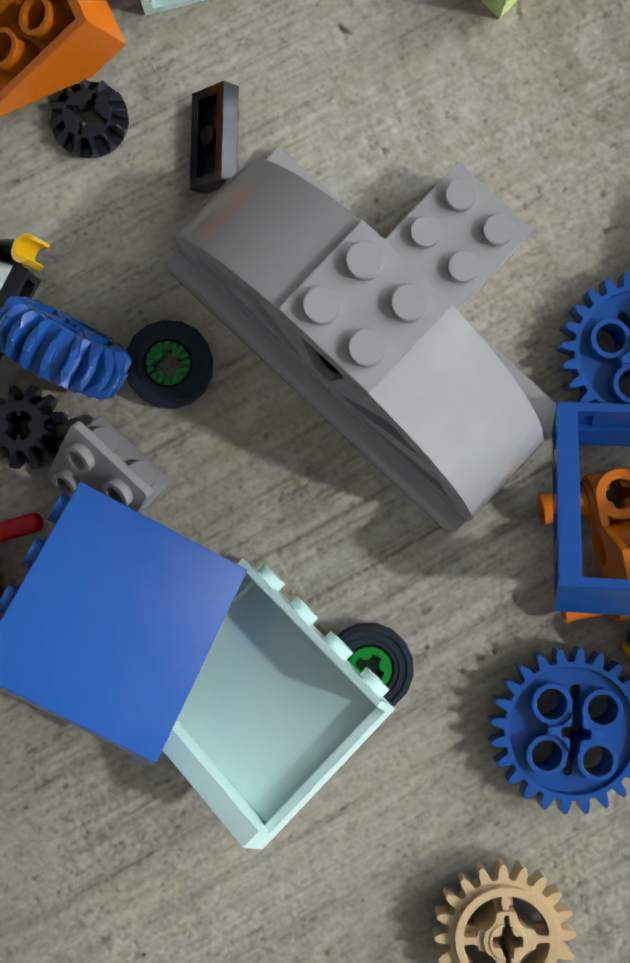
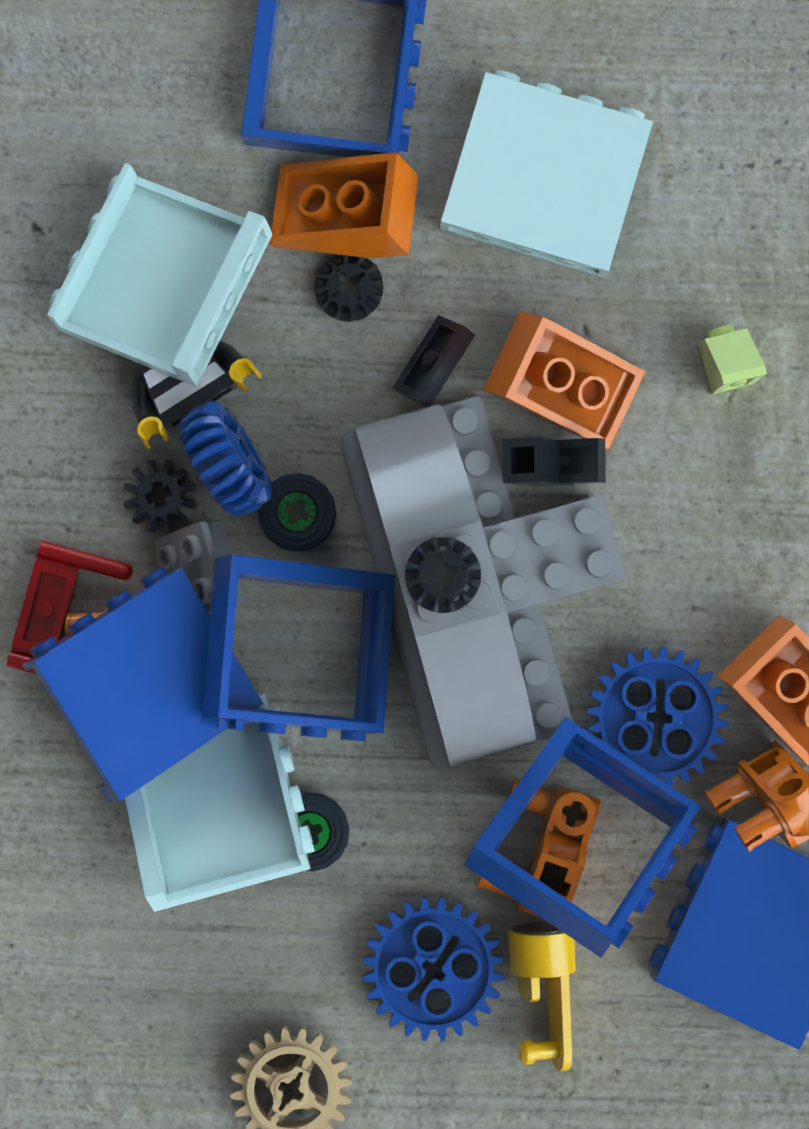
camera: 30 degrees right, 0 degrees up
(323, 448) = (373, 650): none -> blue window
(349, 79) = (564, 378): none -> orange slope
(357, 330) = (431, 594): none -> black gear
(390, 165) = (554, 461): none -> black brick

